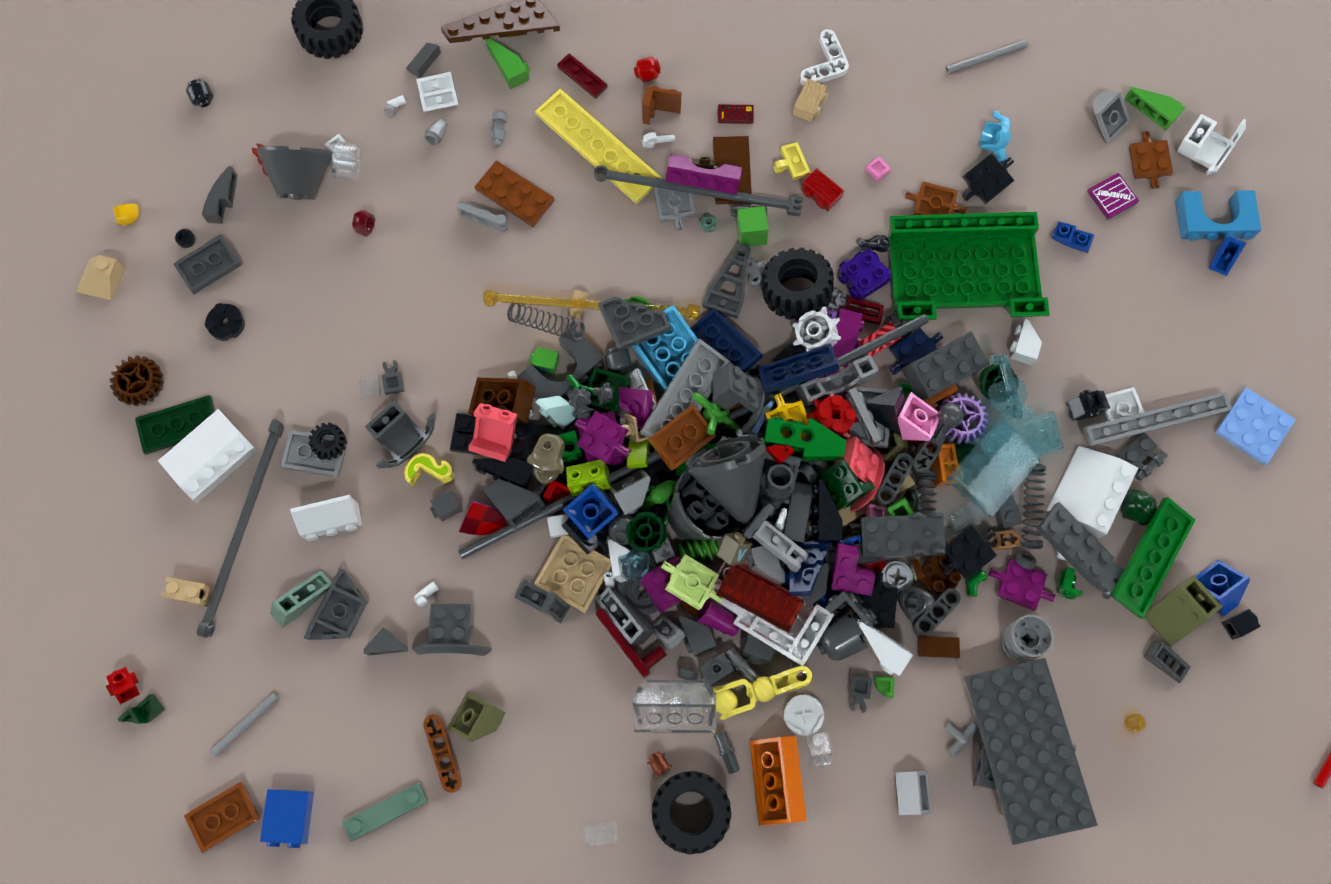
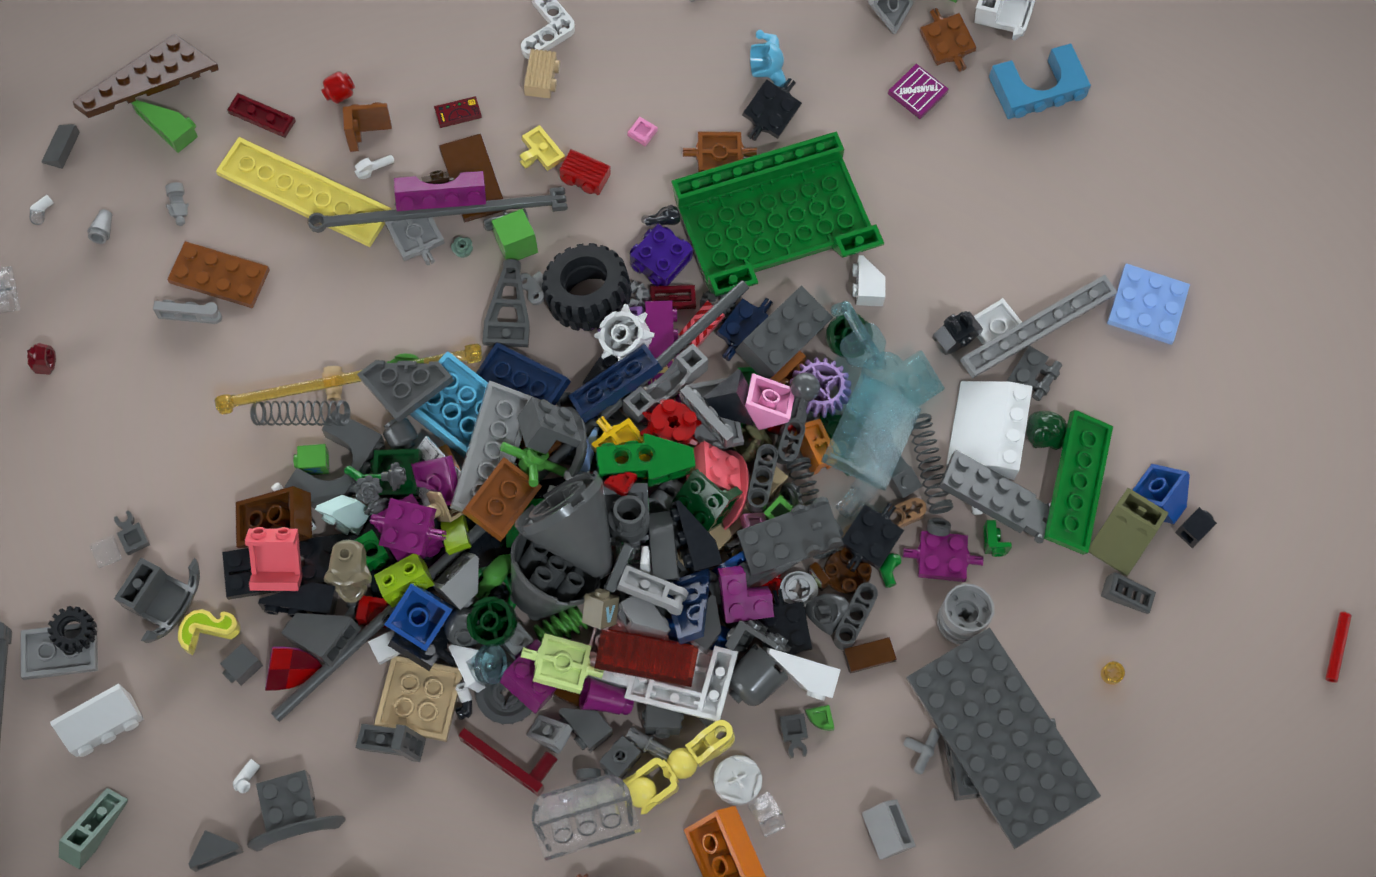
camera: 20 degrees left, 5 degrees down
(338, 610) = (143, 829): dark grey wing -> none
(437, 92) = (88, 180): white slope -> none
(625, 617) = (495, 730): dark grey slope -> none
(727, 752) = (660, 850): dark grey axle -> none
(1069, 236) = (886, 150): blue slope -> none
(1226, 255) = (1061, 123): blue slope -> none

